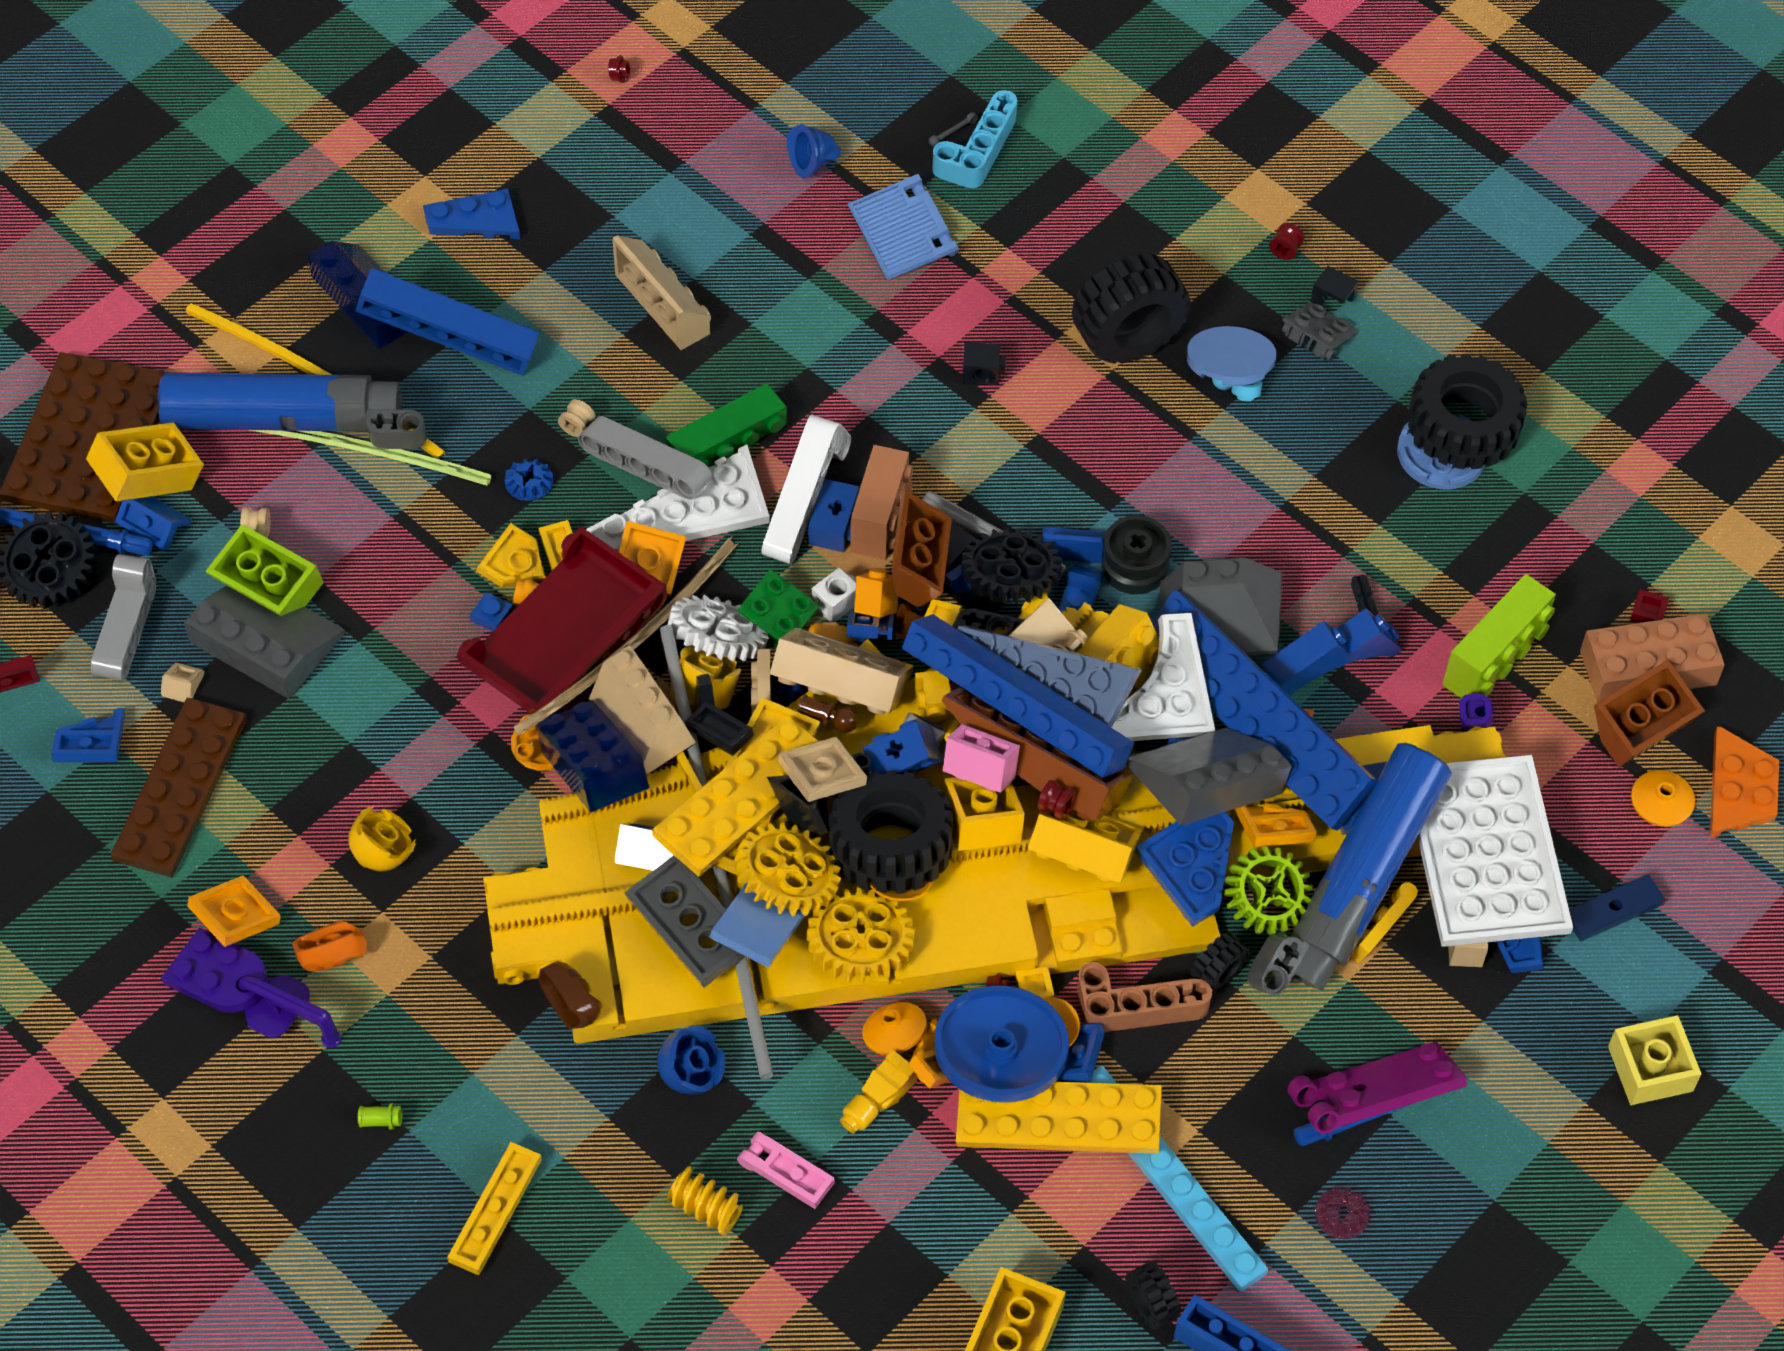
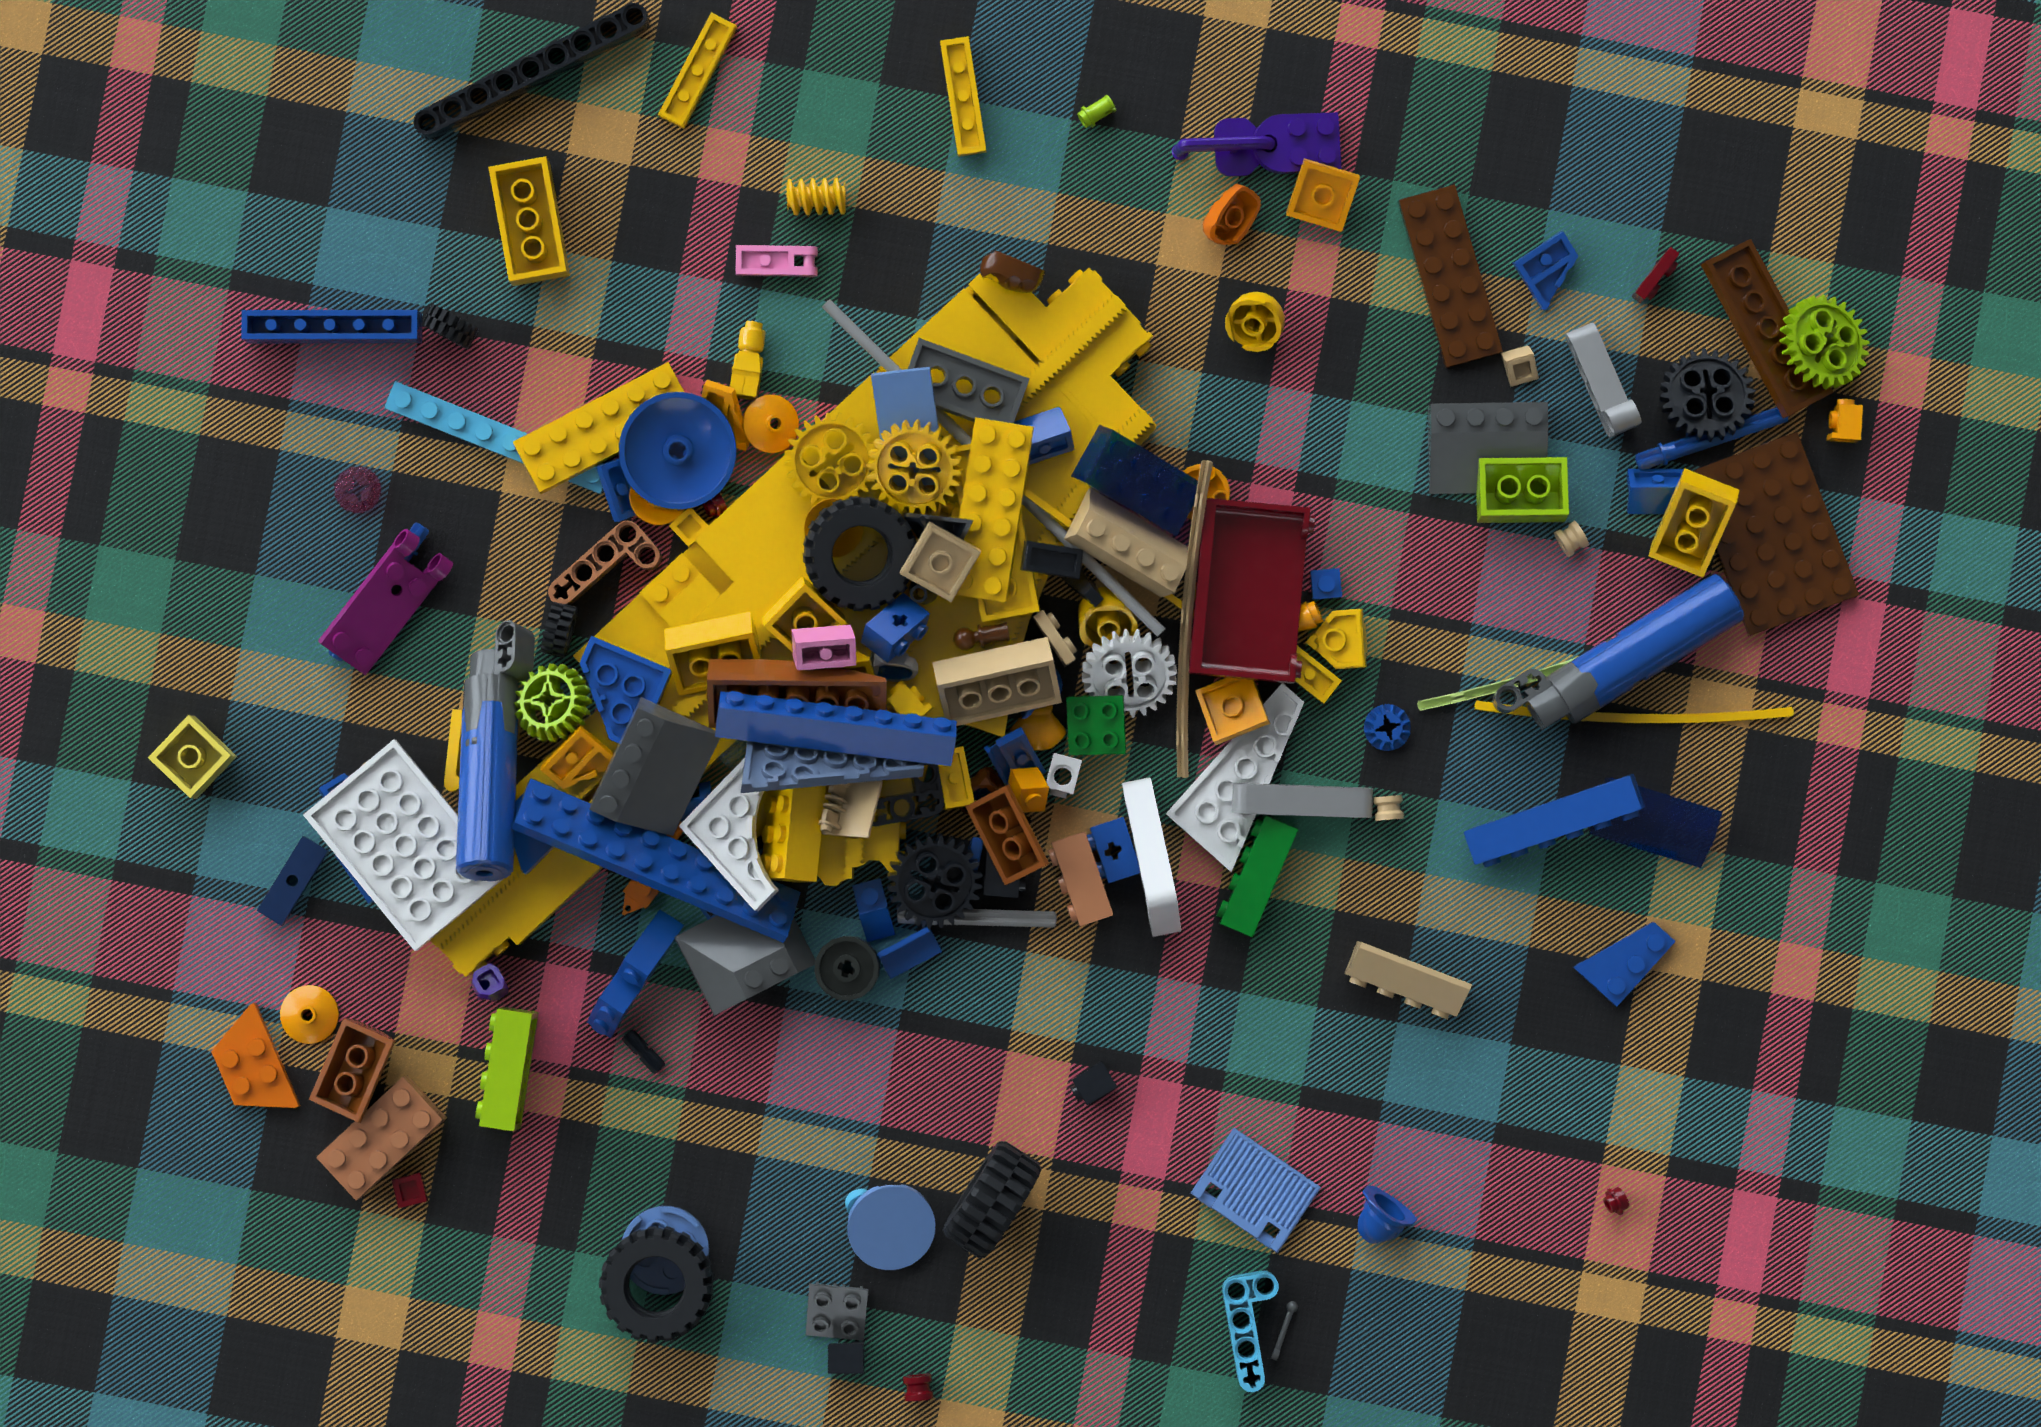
camera: 150 degrees right, 30 degrees up
(691, 1061) = (896, 291): blue cylinder -> none
(1056, 799) = (745, 650): dark red wheel -> none

